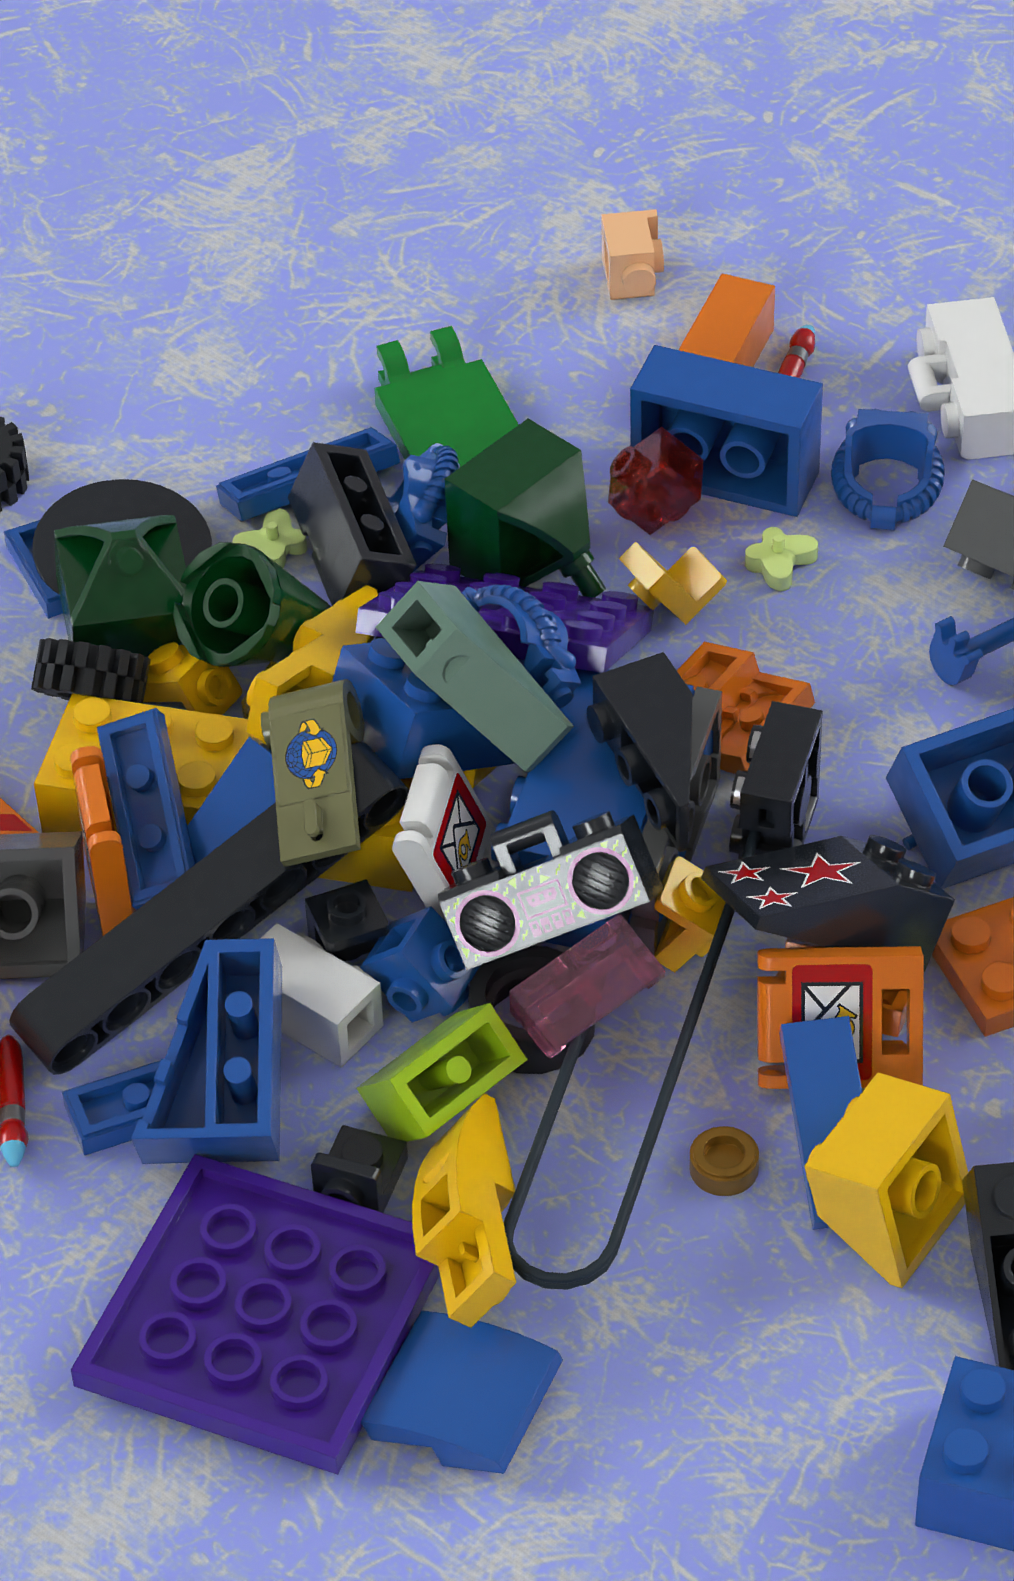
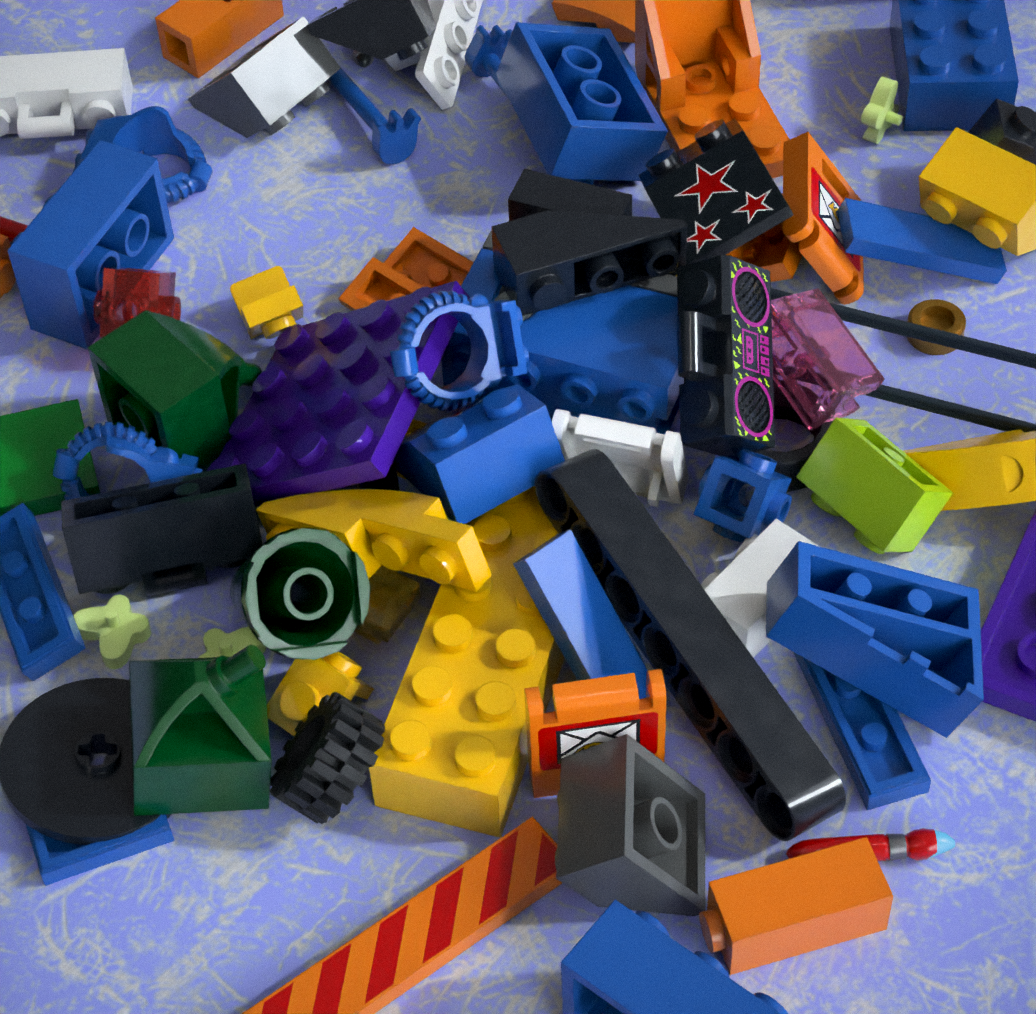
camera: 85 degrees left, 5 degrees up
(146, 803) = (500, 671): blue tile -> none
(313, 769) = (548, 496): olive door -> none
(346, 920) = (699, 537): black bracket -> none
(360, 1168) = (965, 560): black bracket -> none
(474, 671) = (493, 358): sand green slope -> none
(778, 556) = (232, 248): yellowish green piece -> none

